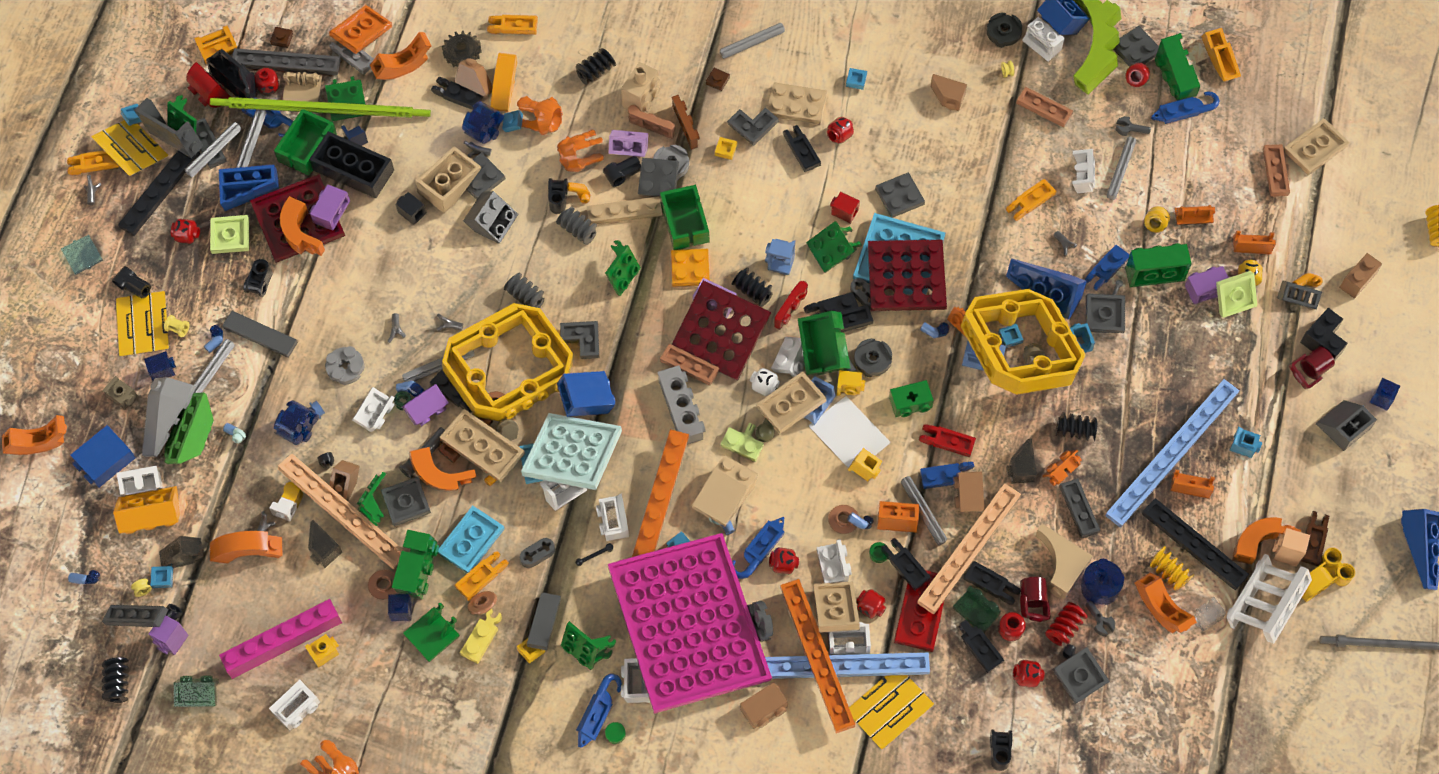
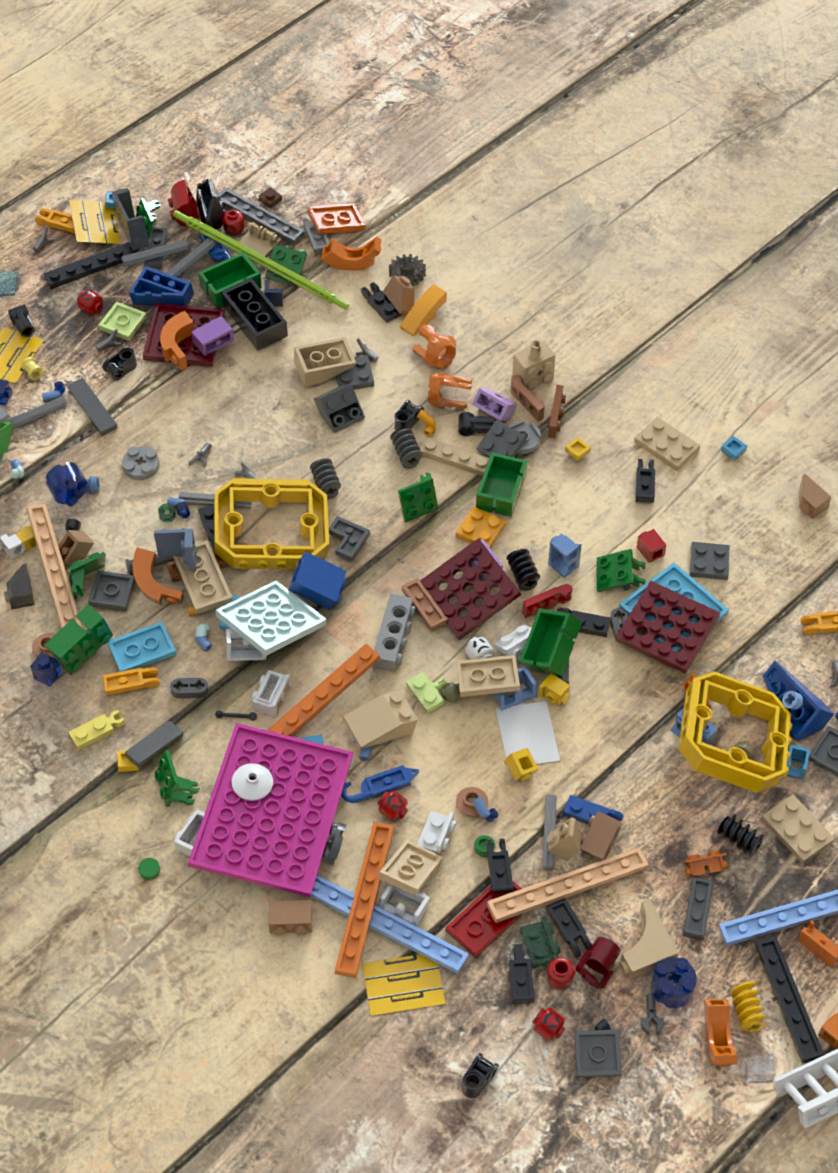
camera: 30 degrees right, 10 degrees down
(226, 43) = (221, 178): light orange plate -> none
(230, 260) = (108, 341): none -> flat silver bar
(373, 409) = (137, 506): white bracket -> none
(410, 208) = (279, 369): black brick -> none
(425, 405) = (181, 519): medium lavender brick -> none
(432, 633) = (57, 704): green plate -> none
(448, 425) = (177, 543): none -> sand blue bracket
(482, 122) = (382, 331): clear blue brick -> none
(482, 602) = (114, 702): nougat piece -> none
(507, 428) = (234, 576): dark tan piece -> none
(512, 121) = (410, 343): dark azure plate -> none
(513, 24) = (464, 271): light orange hinge -> none
(514, 499) = (200, 636): none -> arm
(594, 64) = (509, 332): black piece -> none
(596, 711) = (144, 841): blue plate -> none
(658, 617) = (252, 789): none -> white dish
(717, 79) = (609, 392): reddish brown plate -> none
(752, 40) = (665, 376): light grey axle -> none
(753, 129) = (615, 445): dark grey plate -> none
(840, 130) = (690, 481): red head -> none
(856, 318) = (595, 639): black plate -> none
(870, 367) = (591, 690): dark grey plate -> none
(871, 604) = (445, 884): red head -> none
(898, 516) = (521, 823): orange hinge -> none
(902, 398) = (601, 731): green brick -> none
(935, 332) = (664, 689): arm -> none
(944, 511) = (565, 840): none -> tan slope
(948, 440) = (613, 784): red hinge -> none
(1011, 336) = (731, 726): dark azure plate -> none
(1022, 464) = (667, 840): clear smoke slope -> none
(1054, 287) = (790, 695): none -> light blue bush
(1065, 623) = (614, 999): red piece -> none
(1114, 396) = (797, 828): none -> tan plate

